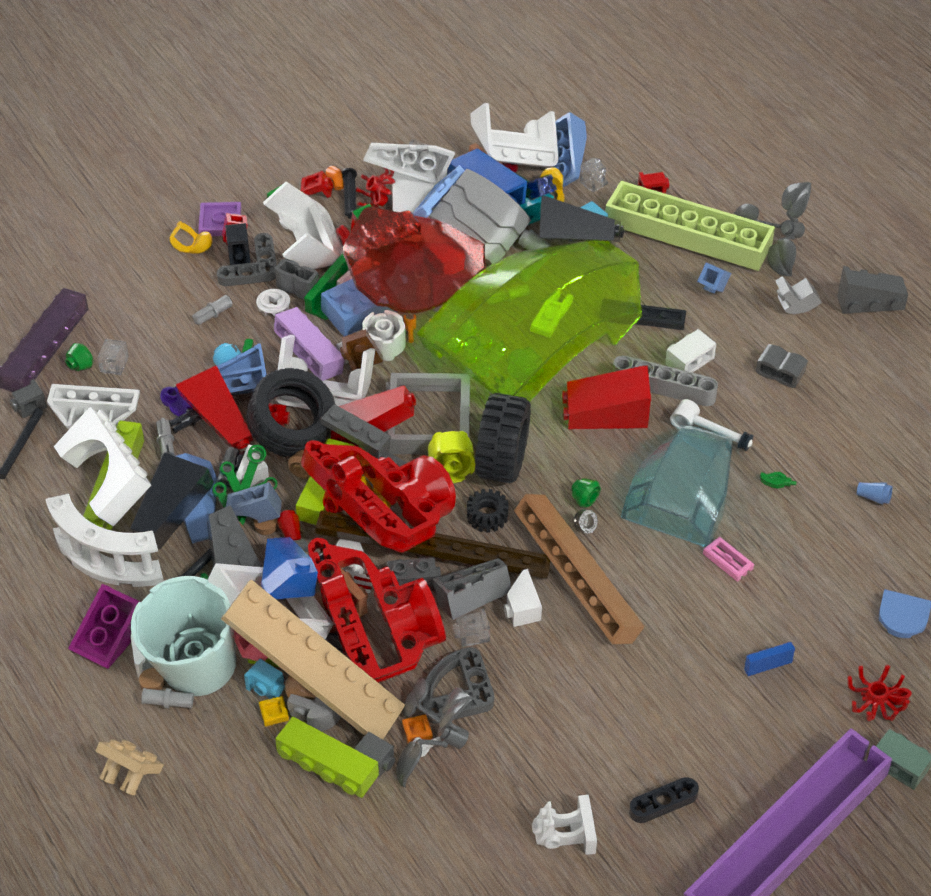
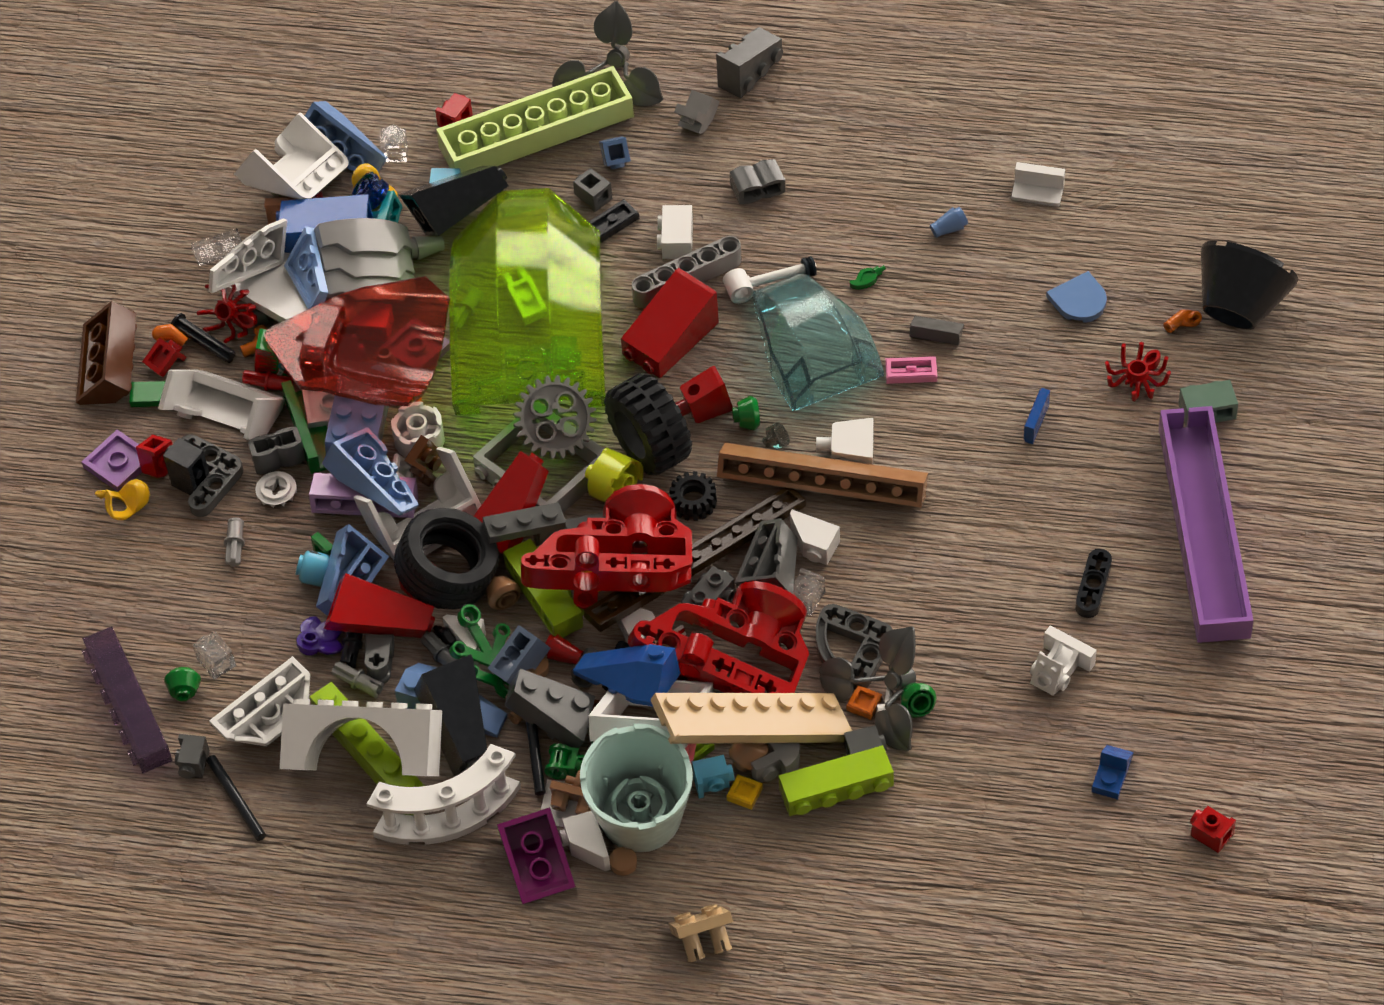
camera: 45 degrees left, 5 degrees up
(167, 698) = (656, 860): light grey pin -> none
(193, 435) = (379, 655): none -> dark grey piece
(289, 161) = (106, 356): none -> reddish brown slope
(319, 327) = (364, 466): none -> medium blue wedge
(445, 404) = (549, 395): none -> light grey gear
(445, 758) = (918, 699): none -> green cone
(570, 457) = (705, 396): none -> red torso
(625, 566) = (849, 441): none -> white torso
(673, 289) = (593, 189): none -> dark grey brick
(778, 549) = (936, 330): none -> dark grey slope

